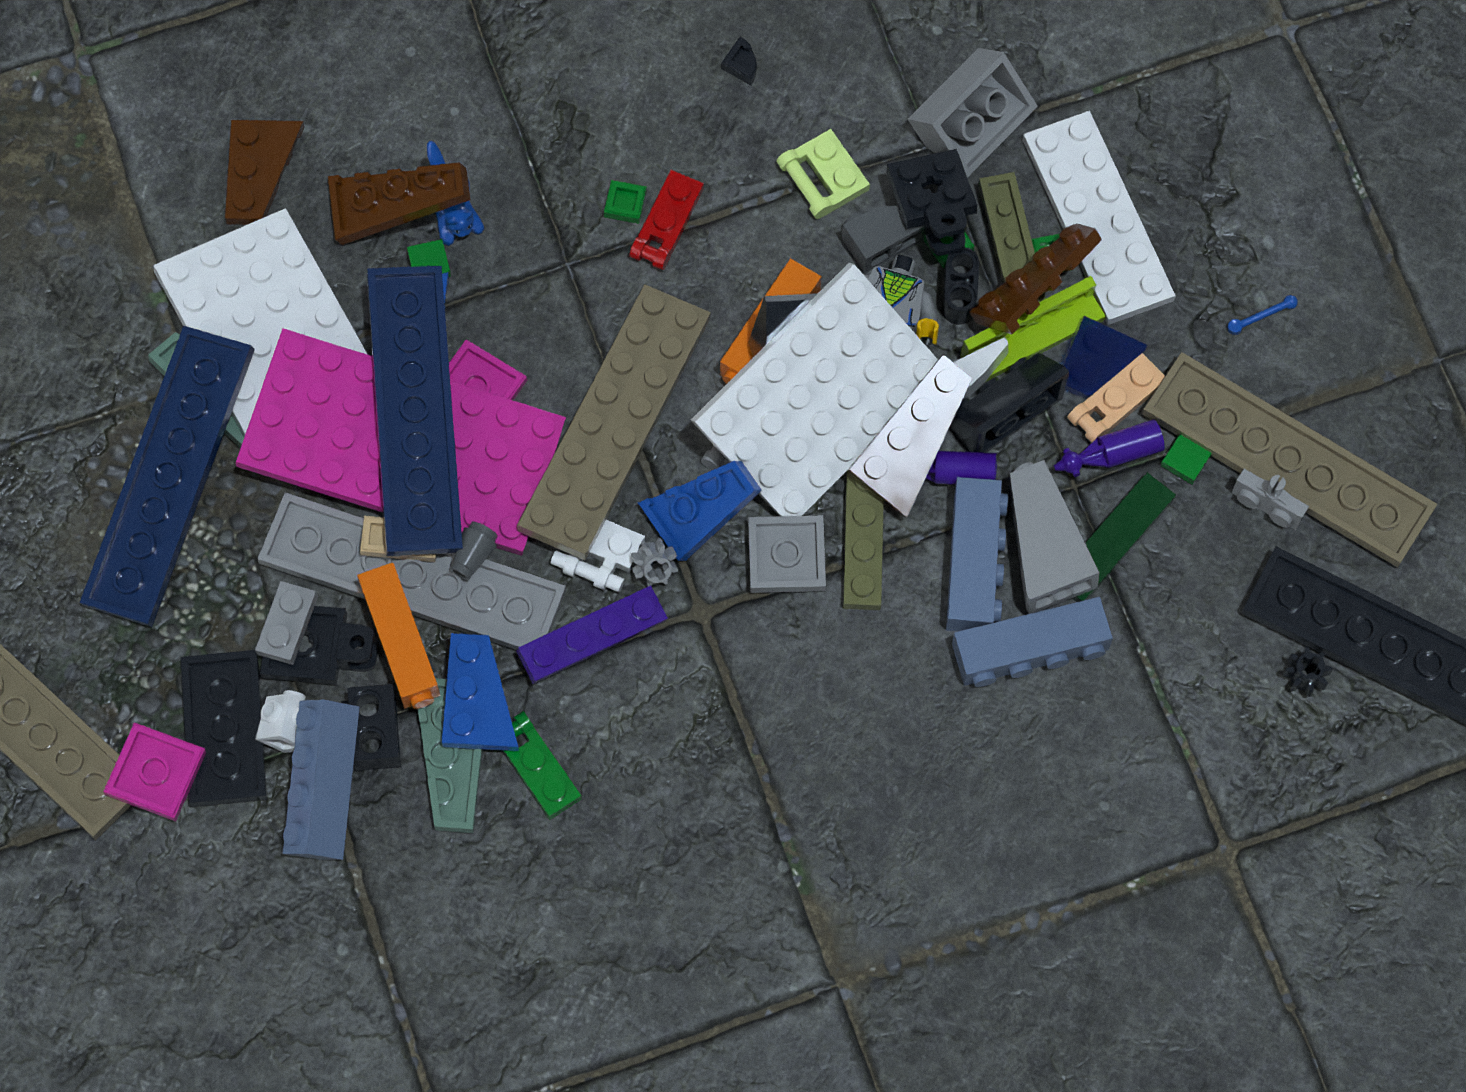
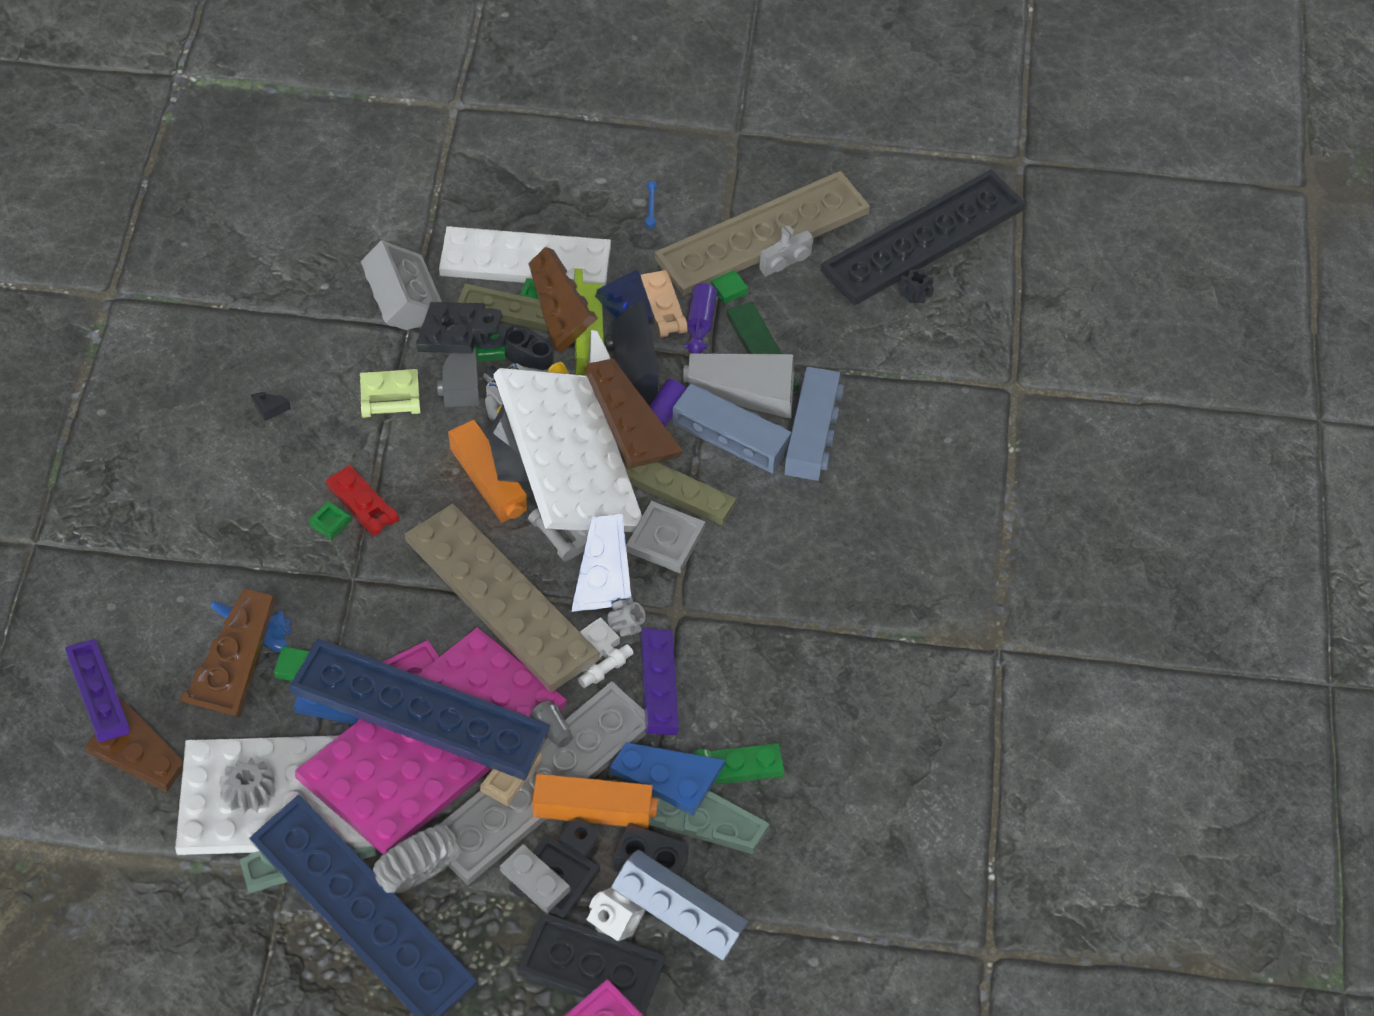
camera: 65 degrees left, 15 degrees down
(230, 289) = (247, 786): none -> light grey gear
(239, 496) = (417, 859): none -> light grey gear
(293, 93) = (97, 690): none -> dark purple plate

